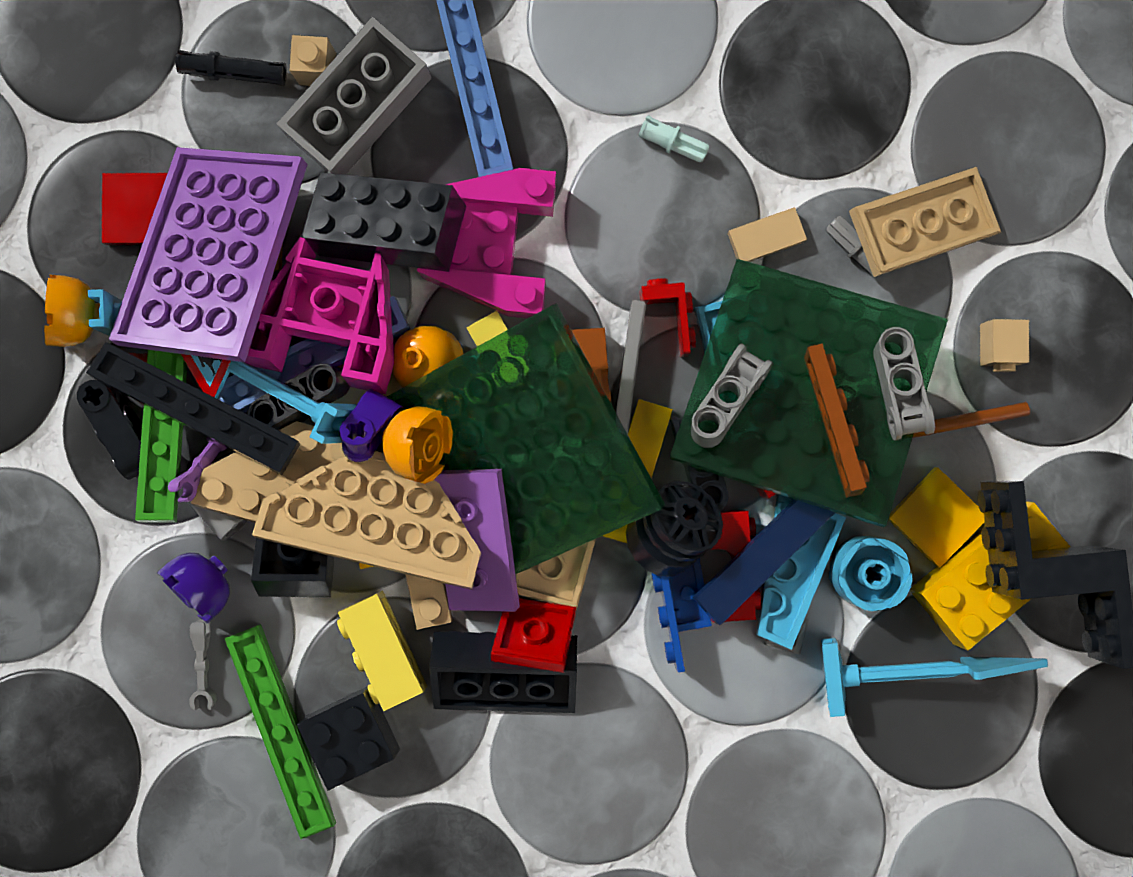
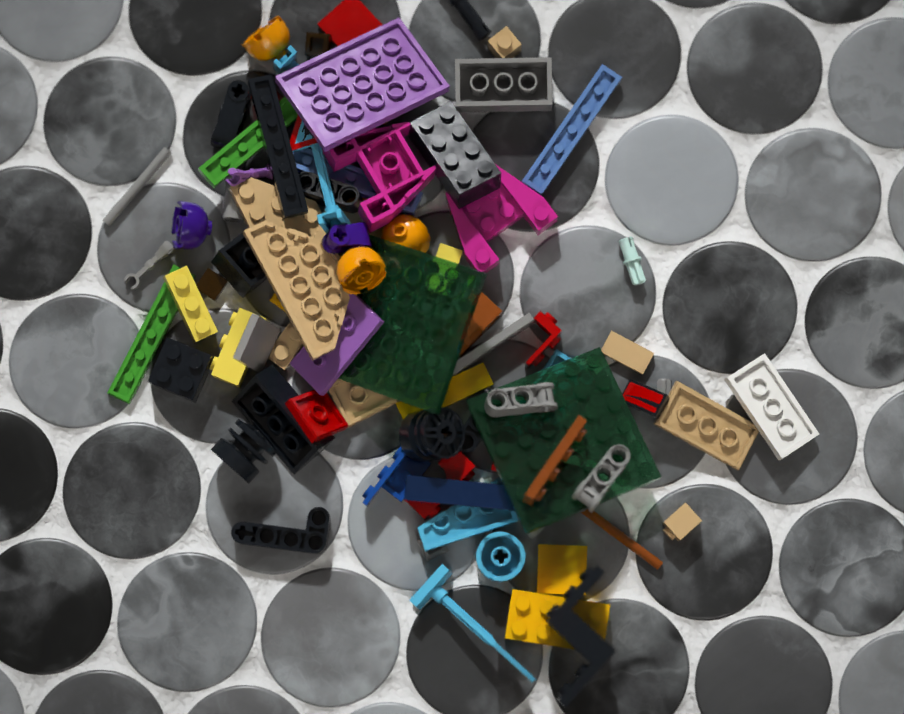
camera: 50 degrees right, 5 degrees down
(102, 601) = (137, 186): none -> light grey bar
(121, 261) = (317, 43): none -> dark brown tile
(283, 663) = (190, 304): none -> light yellow brick
(285, 616) = (211, 284): none -> dark brown tile
(394, 632) = (256, 343): none -> light grey tile
(503, 760) = (244, 450): none -> black wheel
(625, 786) = (281, 532): none -> black beam
(838, 260) = (645, 398): none -> slope
(968, 134) = (771, 407): none -> white plate

